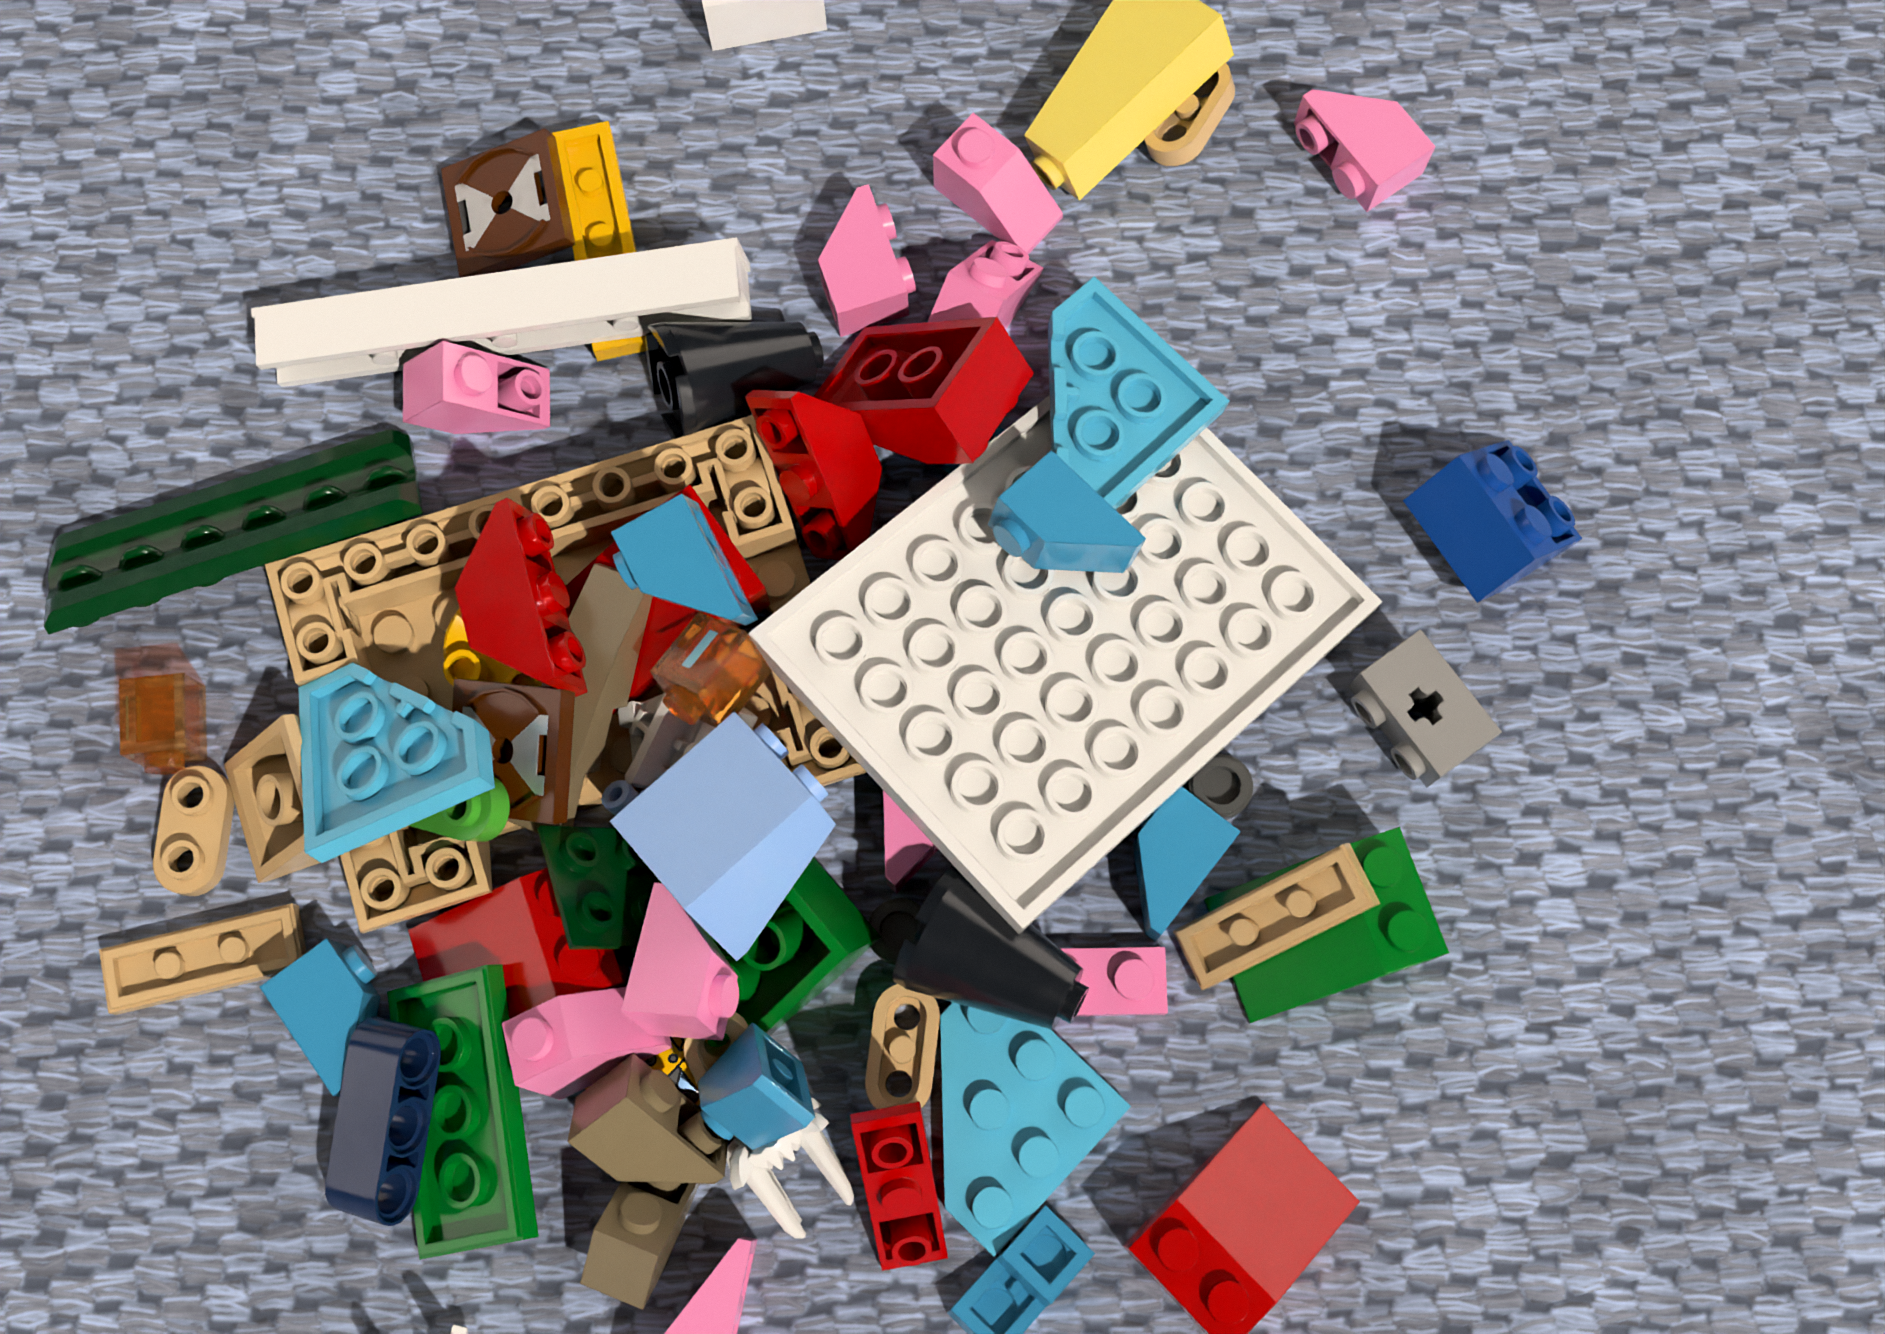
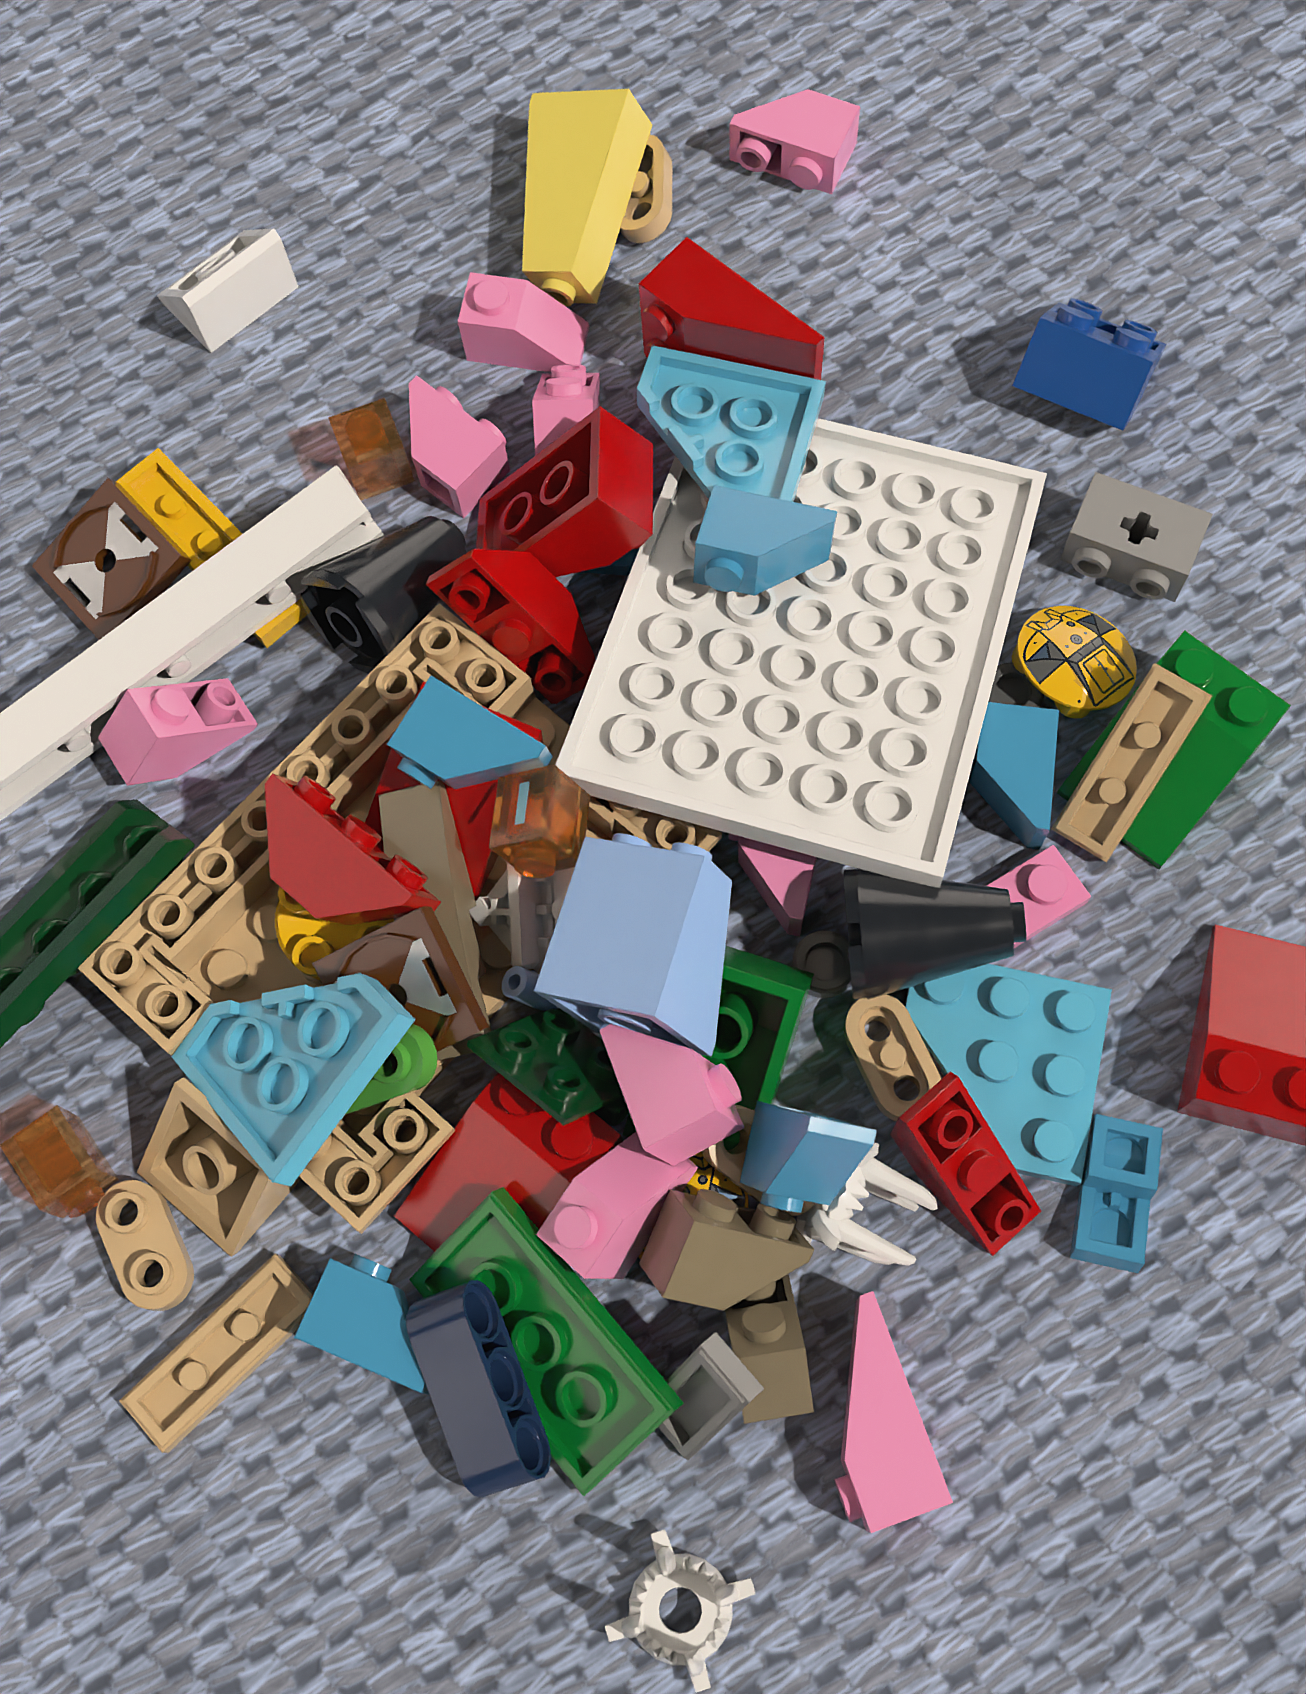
camera: 25 degrees left, 5 degrees down
(564, 1244) = (713, 1392): none -> light grey tile
(791, 229) = (372, 449): none -> clear orange brick
(1159, 274) = (713, 312): none -> red slope
(1295, 790) = (1075, 659): none -> yellow dish

